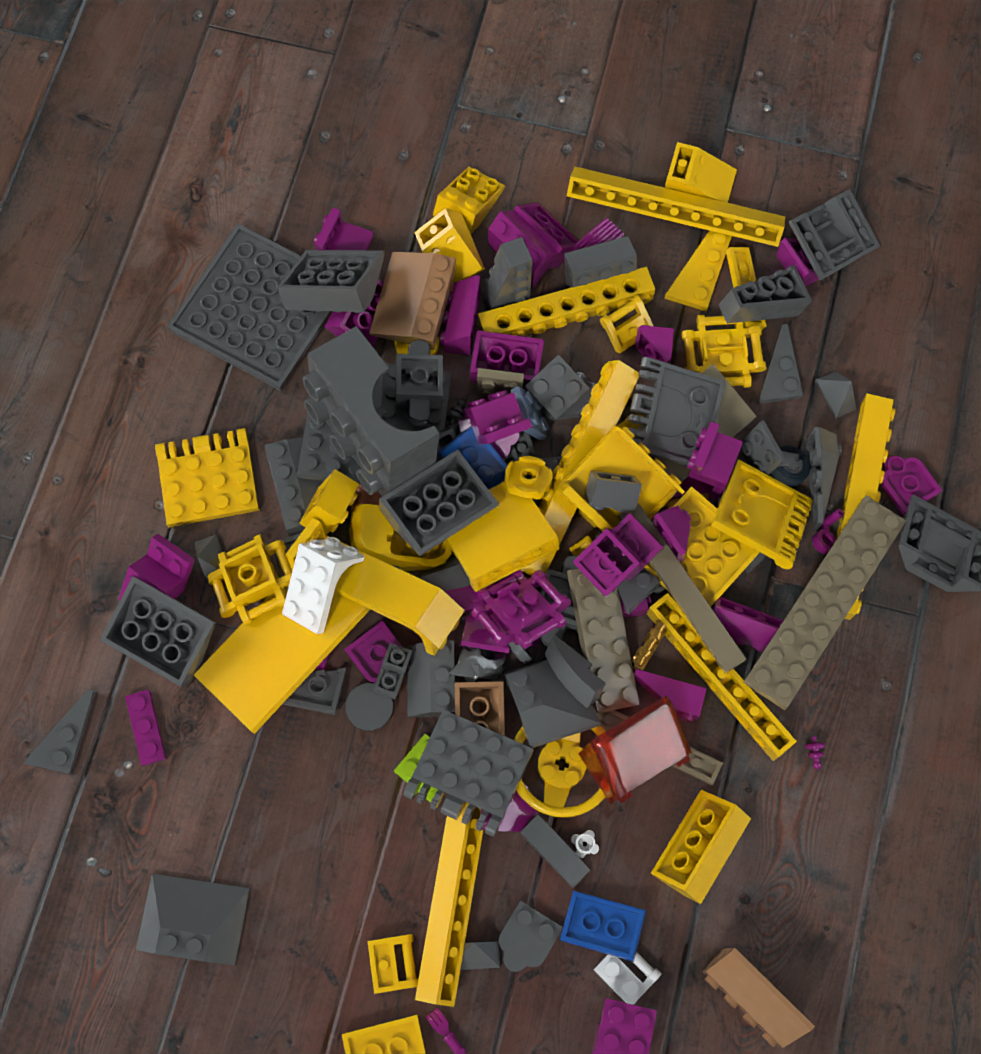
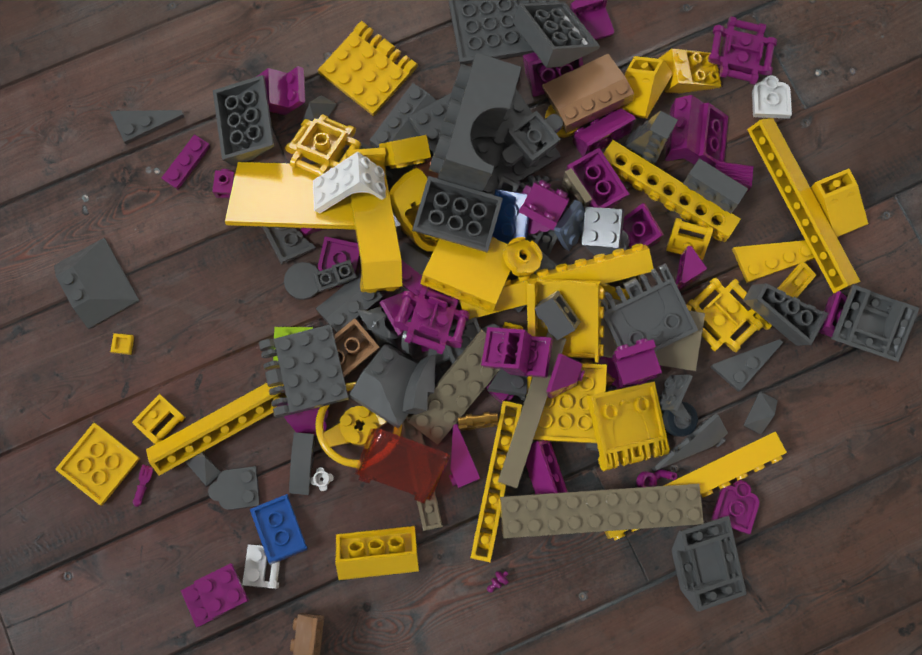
camera: 50 degrees right, 5 degrees up
(204, 705) = (223, 183): none -> magenta brick
(281, 941) = (122, 344): none -> yellow tile
(489, 144) = (742, 51): none -> magenta brick
(554, 154) = (771, 99): none -> white plate
(584, 355) = (642, 227): none -> magenta slope

